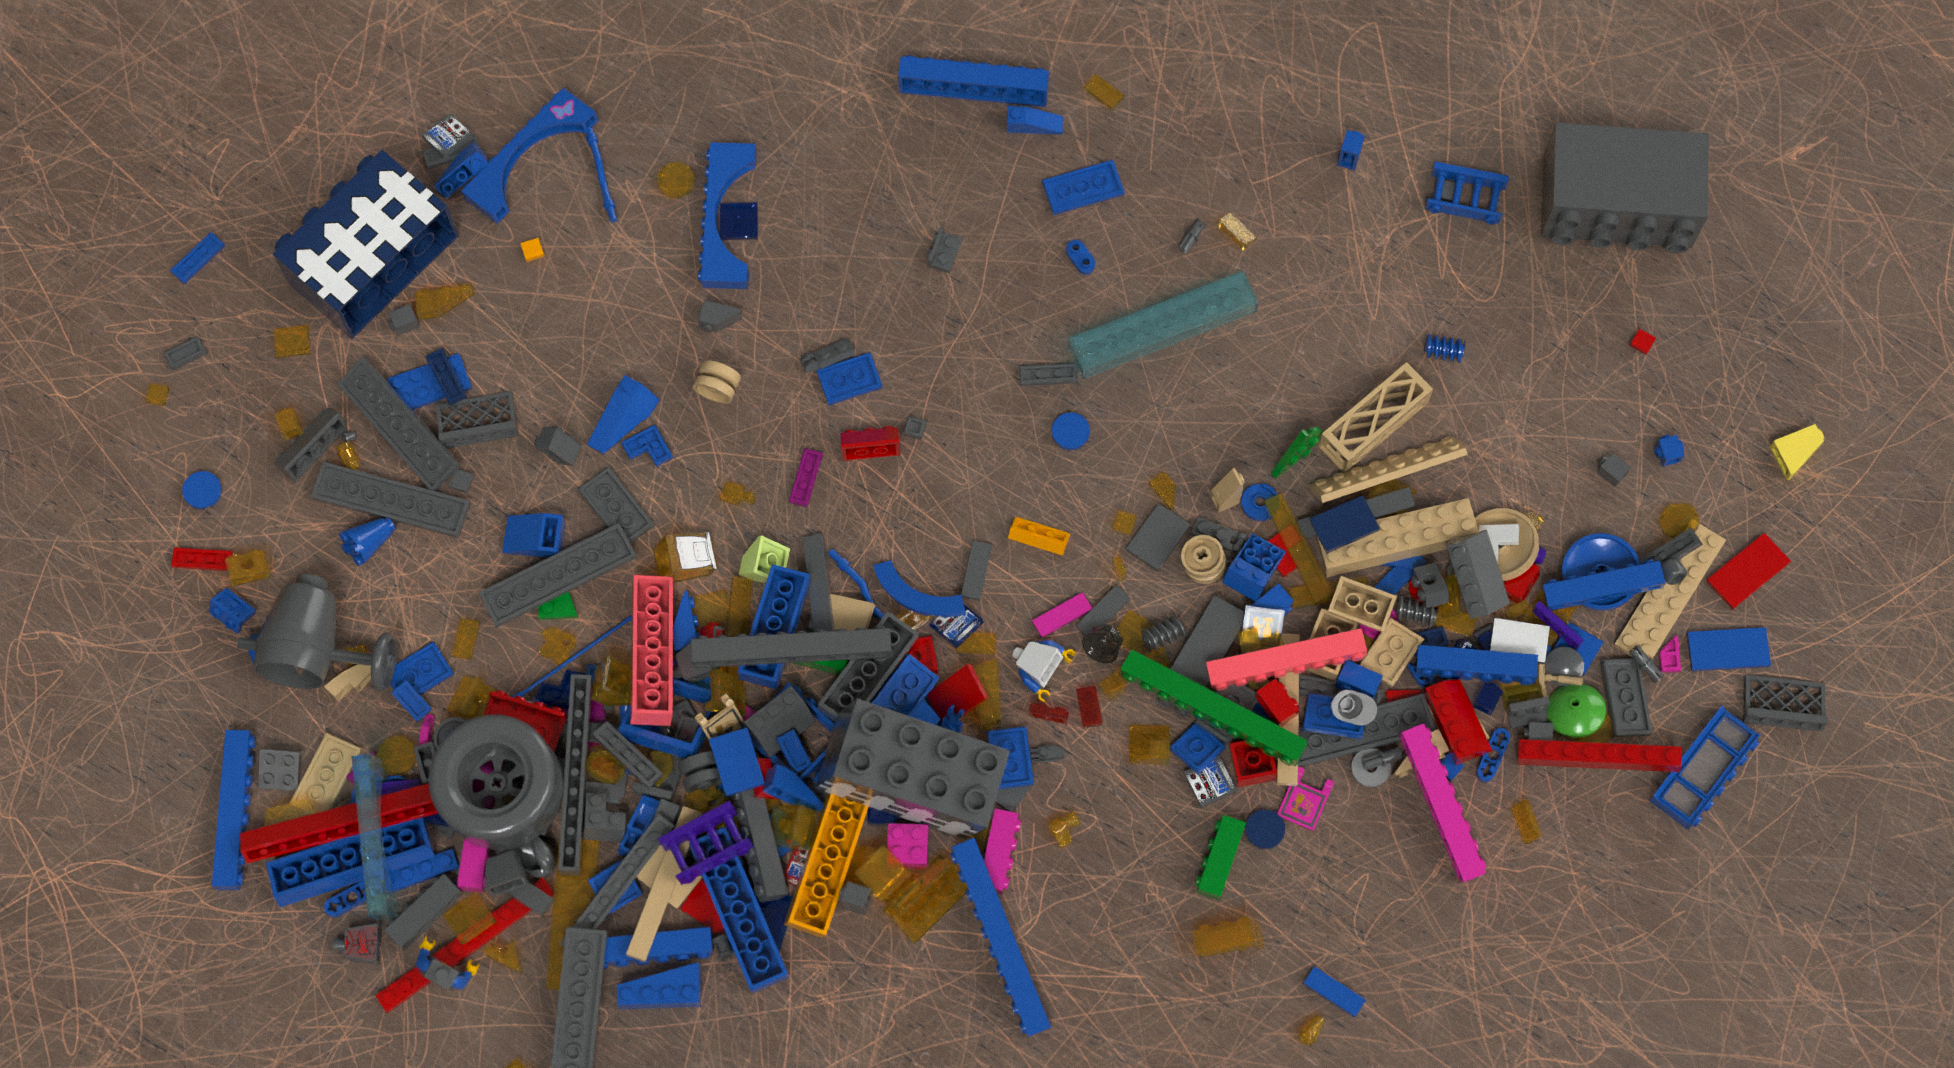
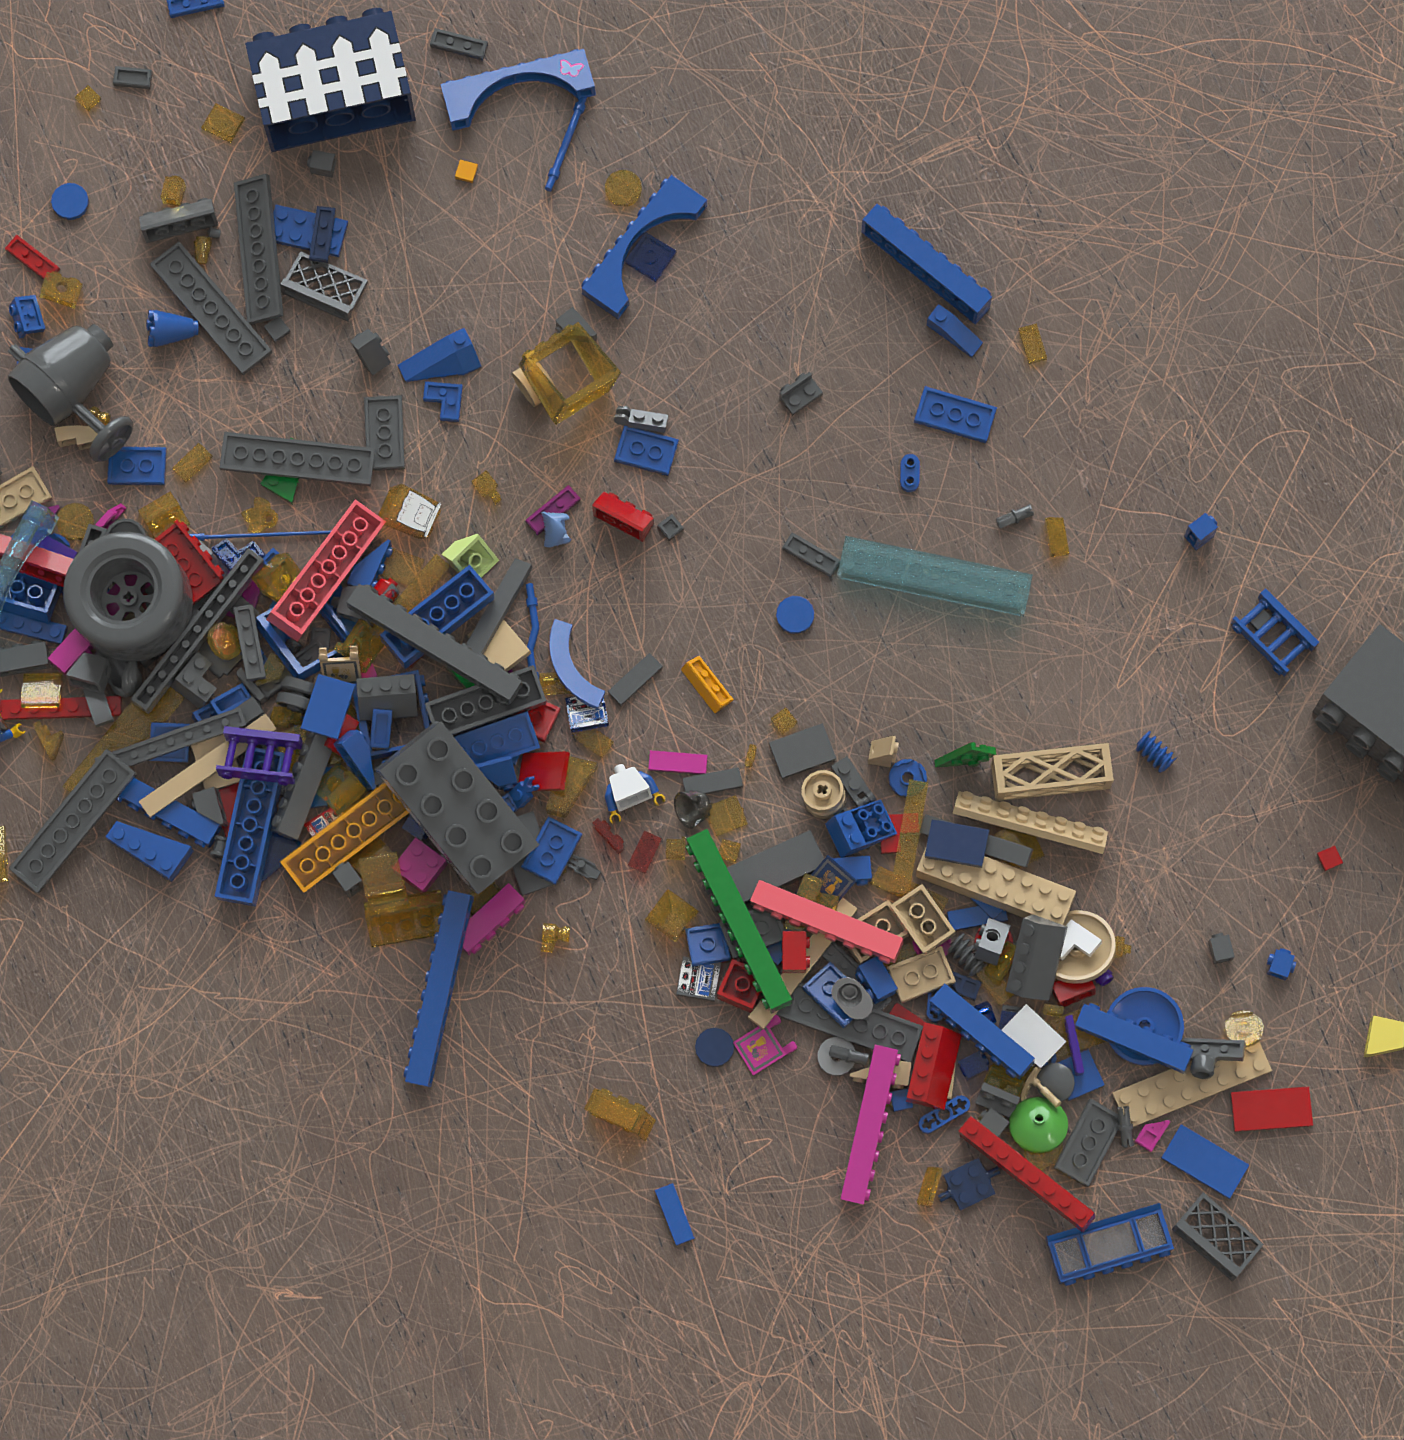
camera: 35 degrees right, 5 degrees up
(411, 700) = (115, 484): blue tile -> none
(438, 302) = (359, 167): clear yellow slope -> none
(447, 136) = (463, 28): tile -> none
(461, 170) = (455, 65): blue slope -> none
(534, 534) = (303, 413): blue slope -> none
(687, 916) = (209, 803): none -> dark grey slope
(757, 330) = (597, 362): none -> clear yellow windscreen
(820, 490) = (555, 529): none -> medium blue hair
(1162, 632) = (747, 833): dark grey piece -> none
(1164, 488) = (837, 714): clear yellow tile -> none
(1221, 857) = (662, 1045): green brick -> none
(1309, 1033) = (631, 1232): clear yellow cone -> none
(1556, 798) = (969, 1184): none -> dark blue plate

